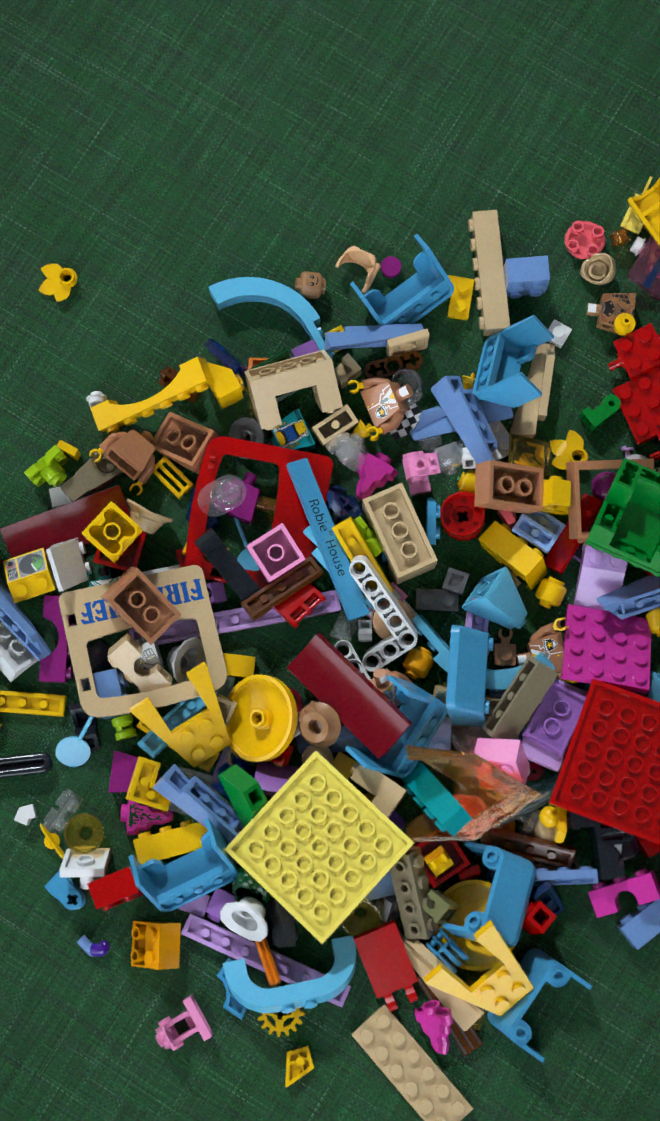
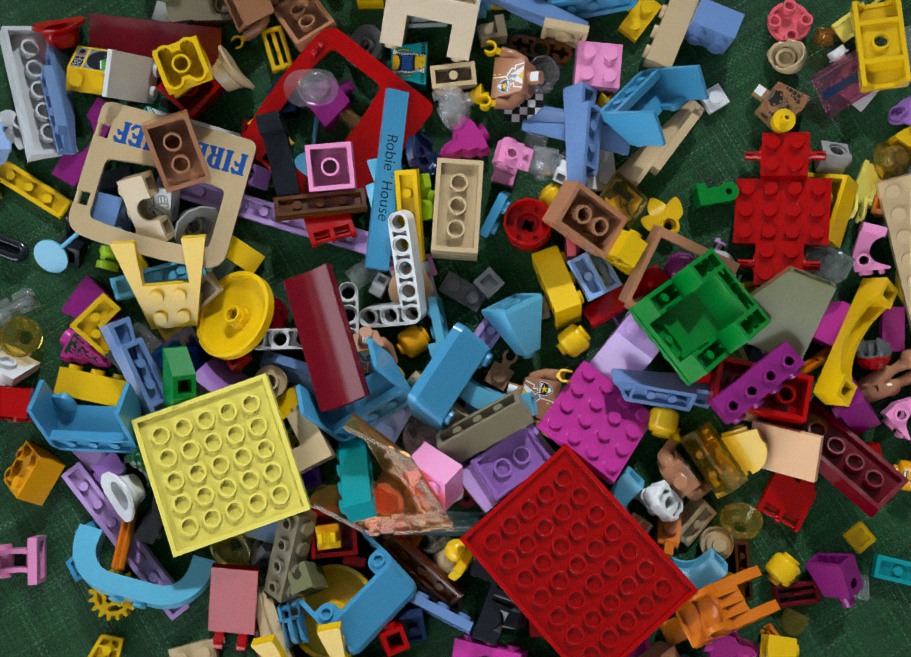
camera: 25 degrees right, 5 degrees up
(319, 724) = (284, 350): medium nougat piece -> none
(449, 356) = (598, 66): none -> bright pink brick

